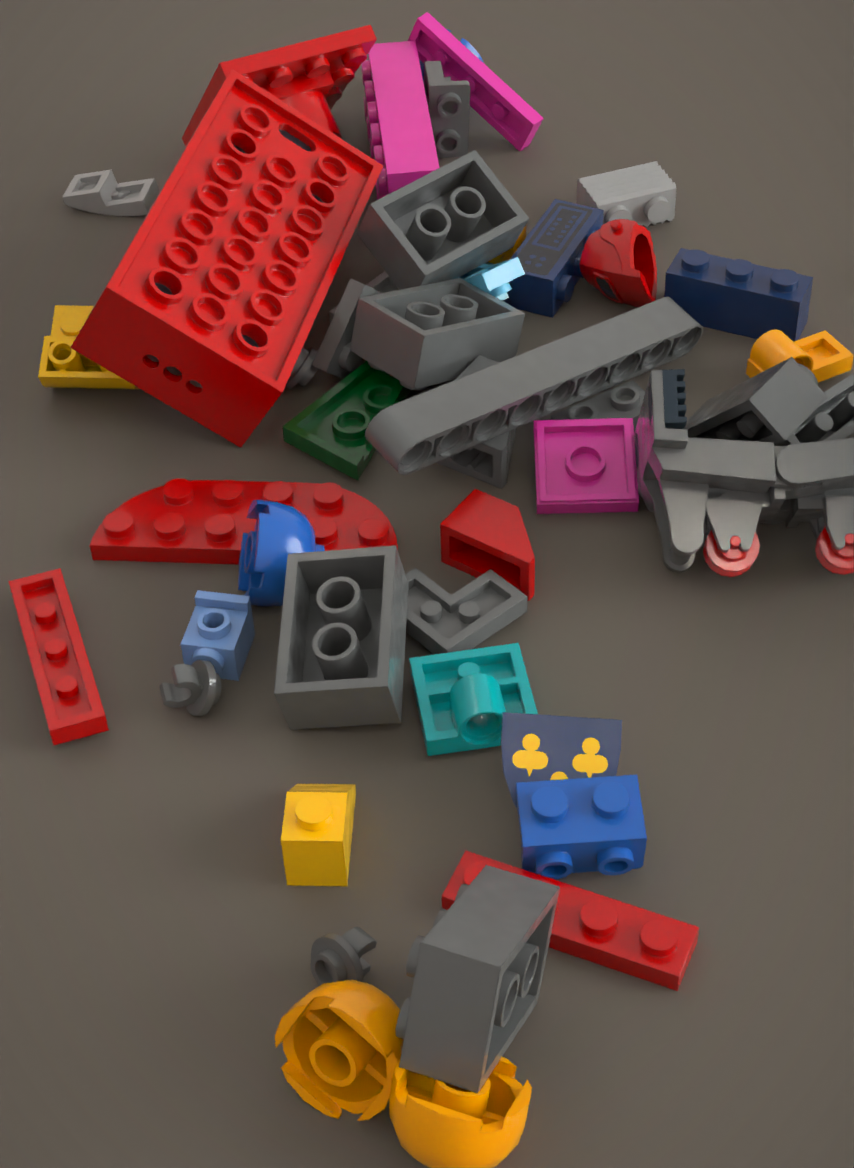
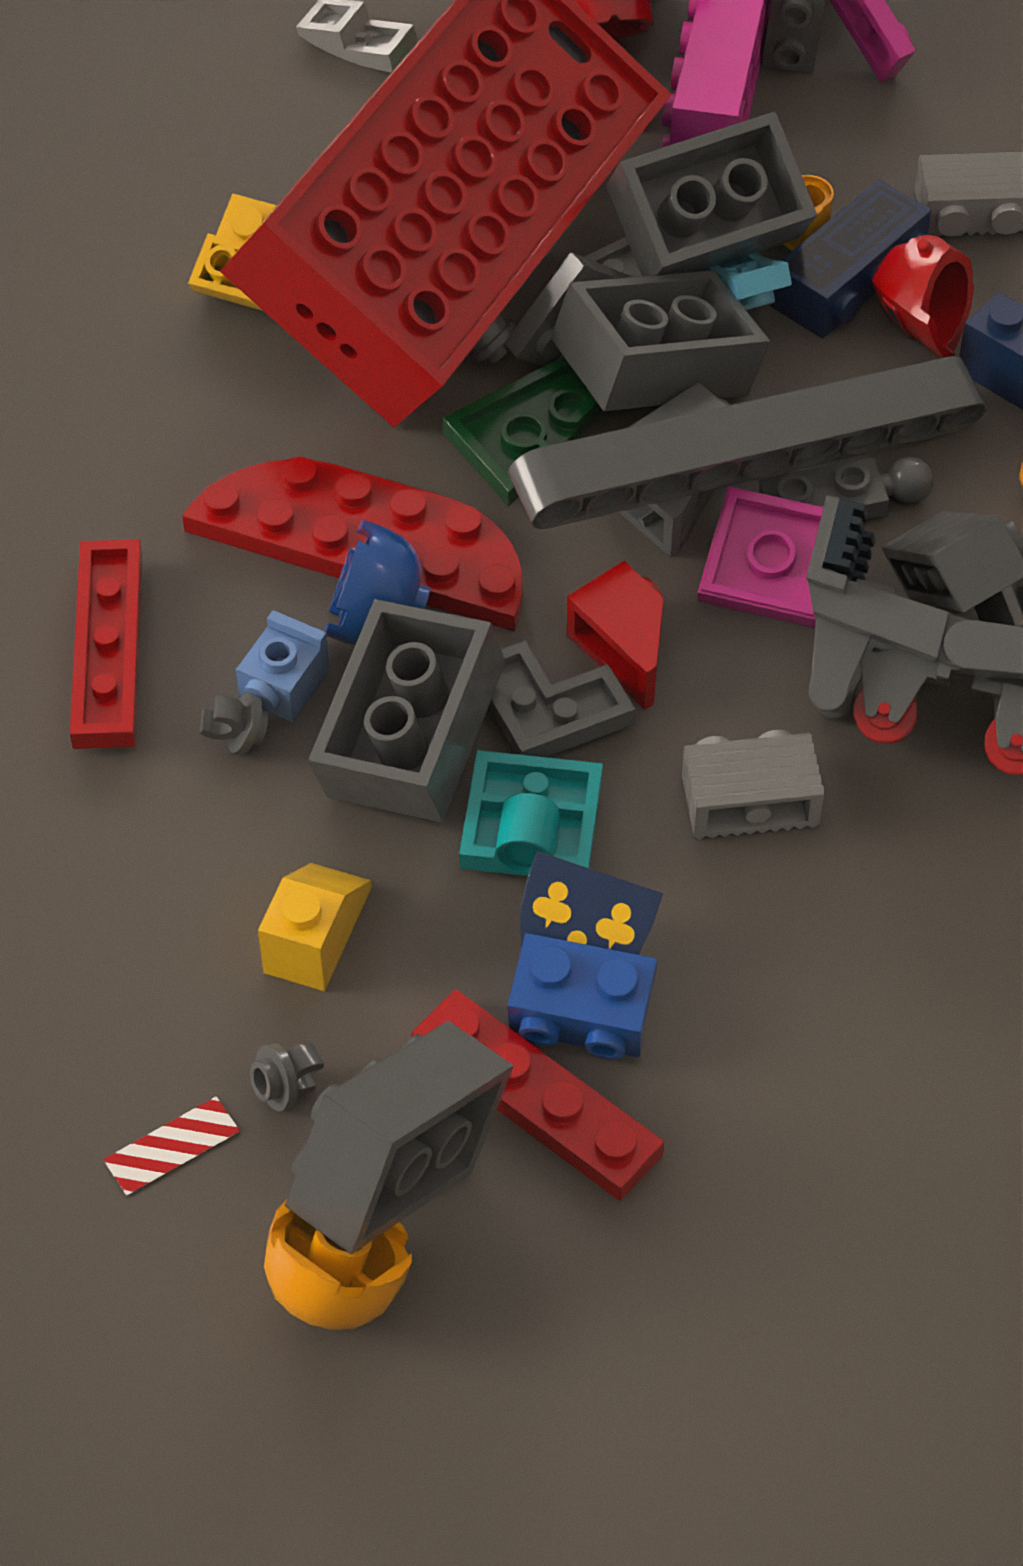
camera: 15 degrees right, 10 degrees up
(247, 1062) = (171, 1145): none -> sticker
(342, 1048) = (244, 1163): light orange cylinder -> none
(646, 630) = (752, 784): none -> light grey brick

